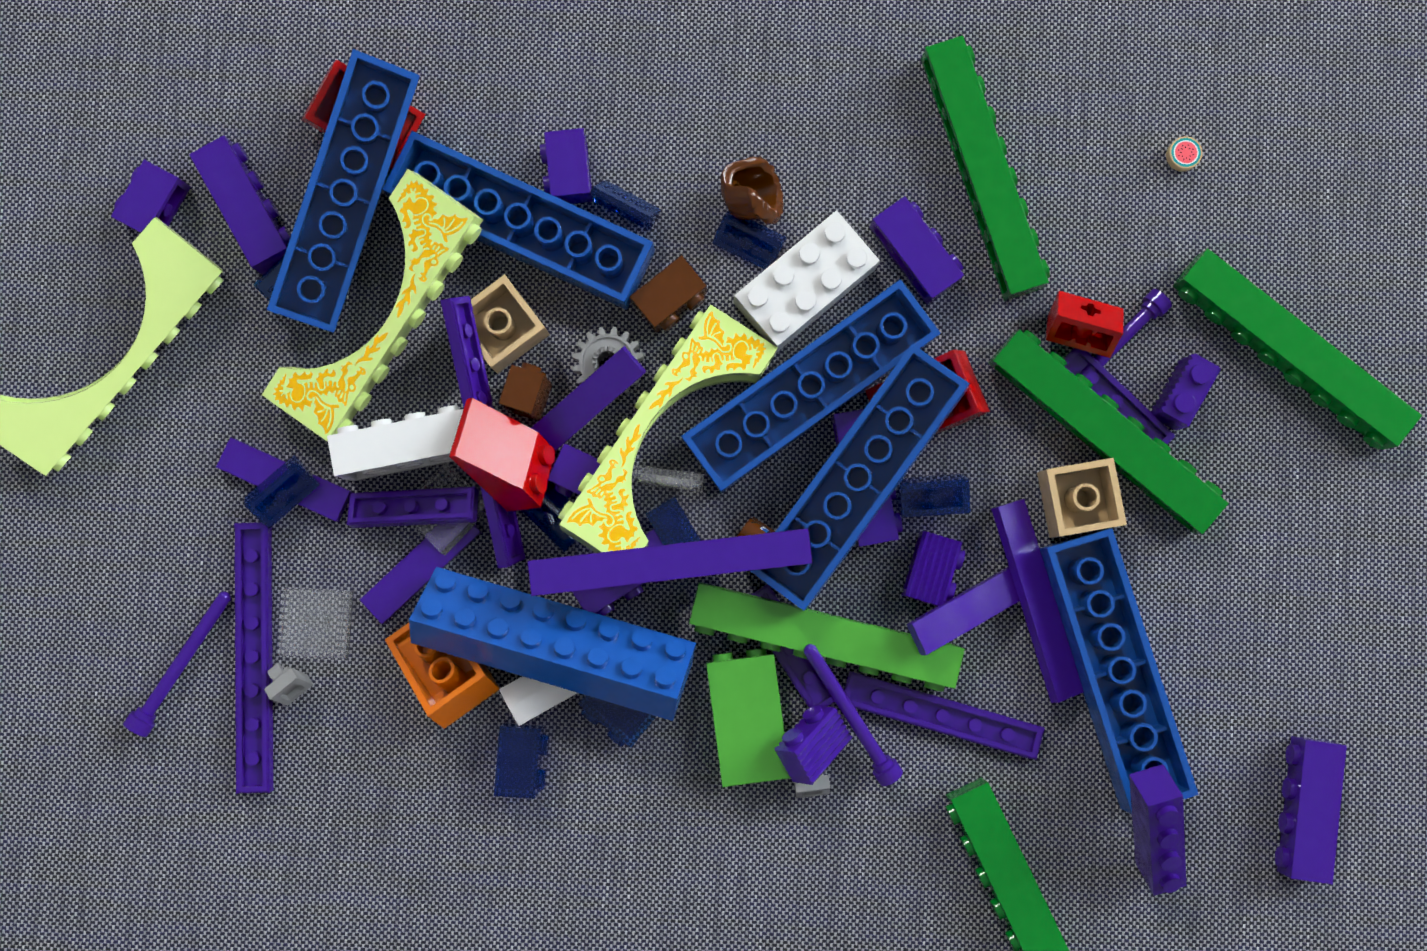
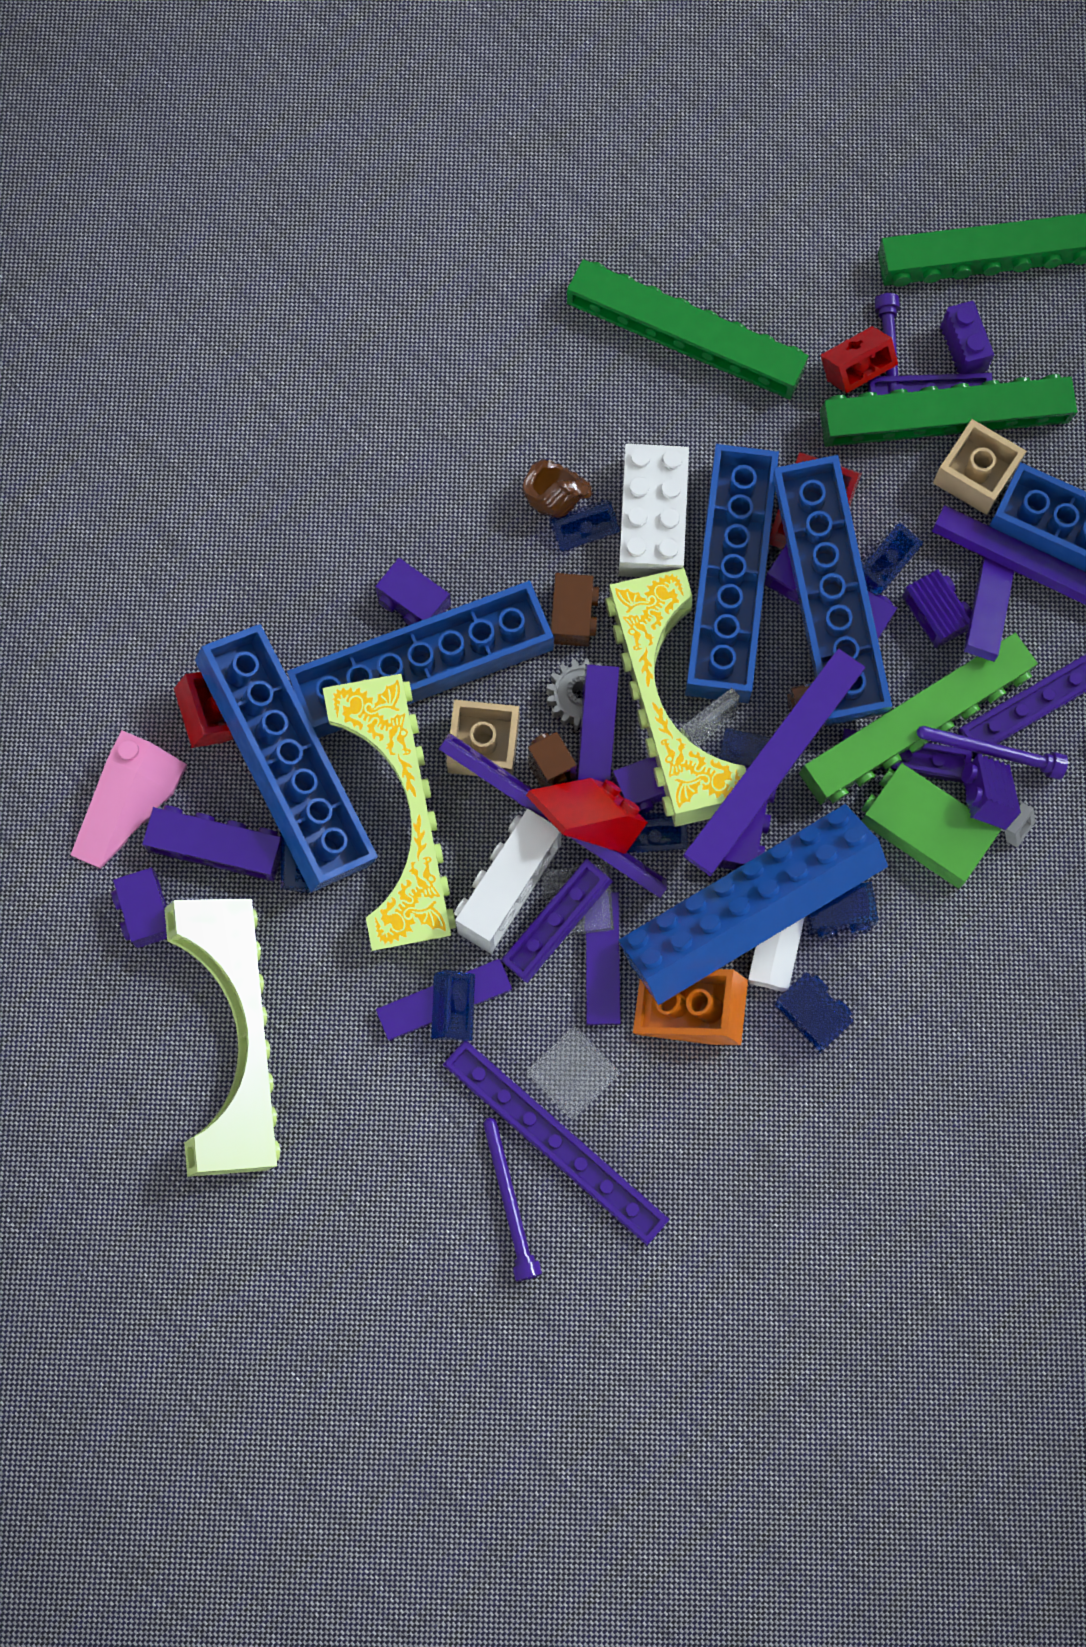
camera: 50 degrees left, 10 degrees down
(232, 103) = (130, 786): none -> bright pink wedge
(286, 684) = (601, 1131): light grey tile -> none
(625, 204) = (478, 583): clear blue slope -> none
(917, 249) = (701, 420): dark purple brick -> none
(1184, 154) = (800, 198): tile -> none

